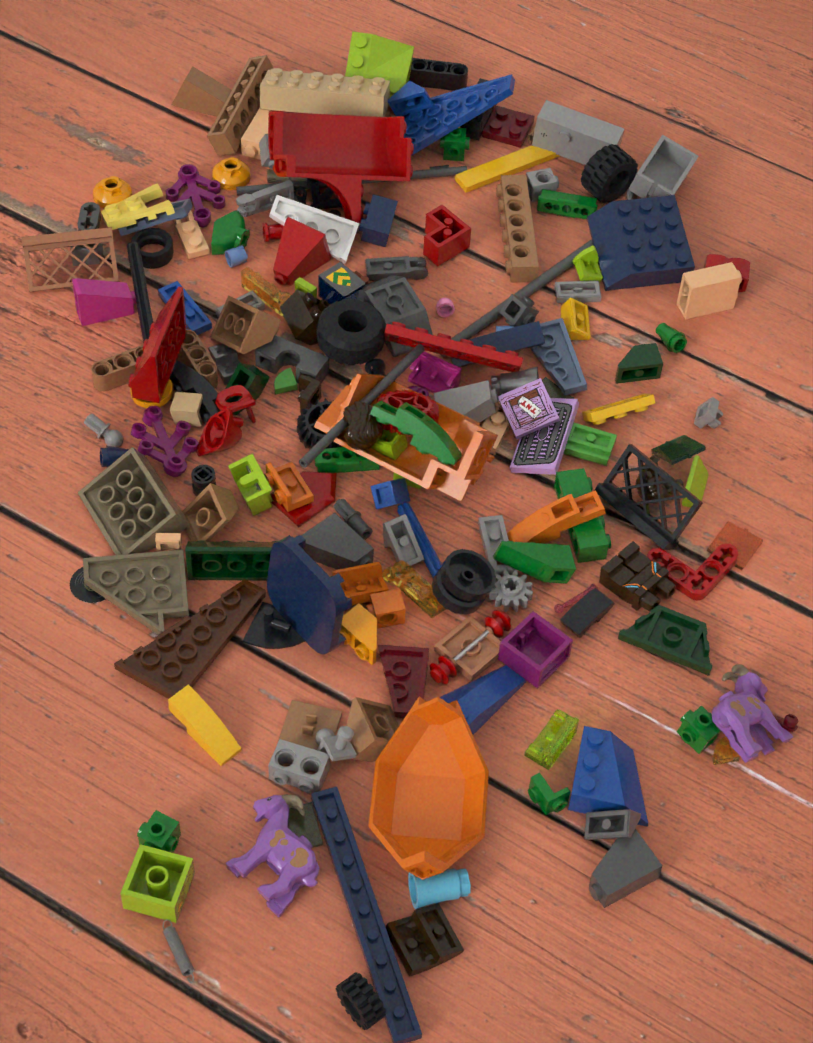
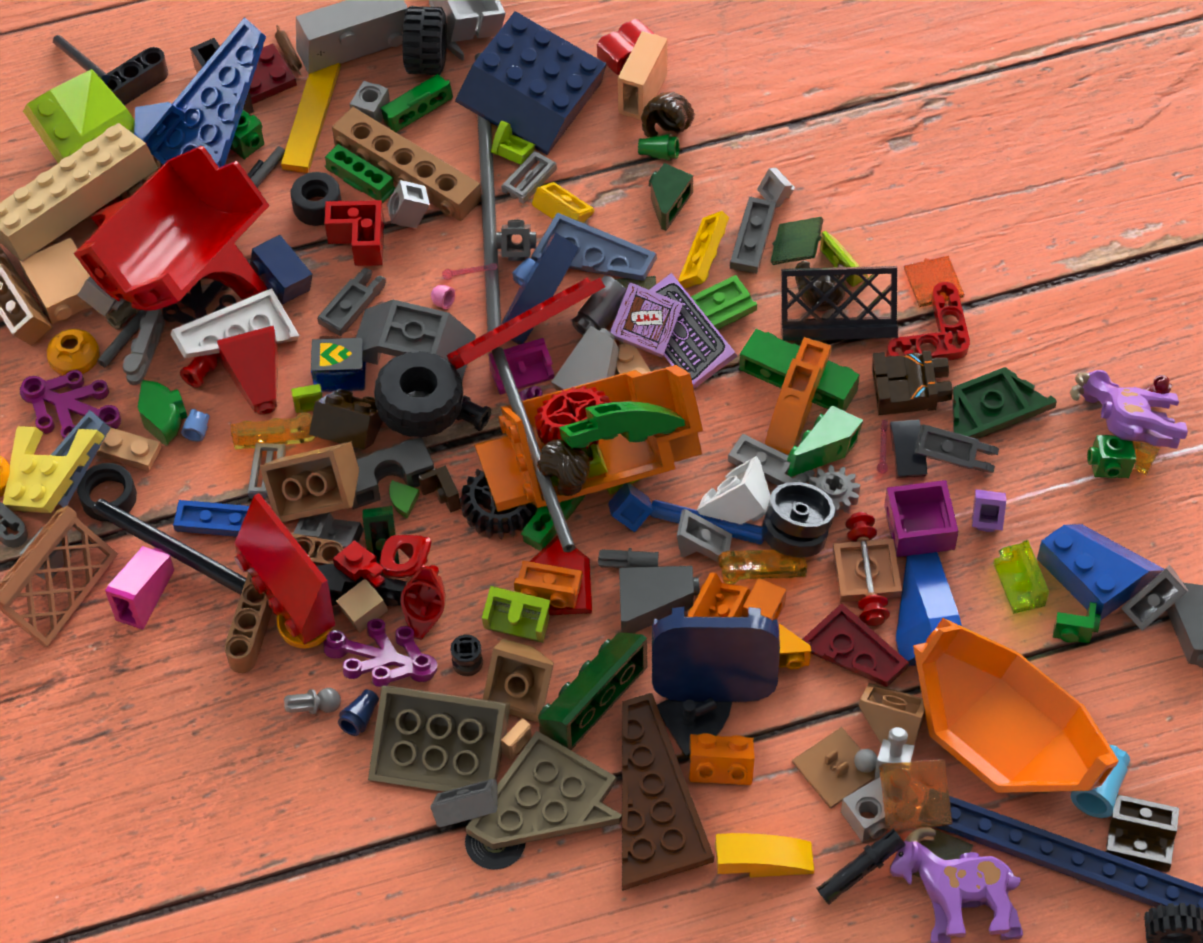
camera: 45 degrees left, 5 degrees up
(100, 546) = (465, 803): none -> flat silver slope
(209, 382) = (358, 562): none -> red plate
(251, 784) = (861, 866): none -> black pin
(253, 658) = (721, 759): none -> orange bracket
(317, 776) = (915, 794): none -> clear orange plate
(423, 44) = (80, 58): none -> black bar
(445, 540) = (740, 496): none -> white slope
(451, 197) = (310, 186): none -> black tyre
(465, 300) = (448, 274): none -> clear pink hinge
(487, 245) = (408, 204): none -> light grey brick
(488, 213) = (359, 173): none -> green piece
(581, 684) = (988, 510): none -> medium lavender brick
(607, 633) = (953, 448): none -> dark grey hinge
(659, 425) = (753, 235): none -> dark grey plate
(700, 321) = (669, 111): none -> dark brown hair

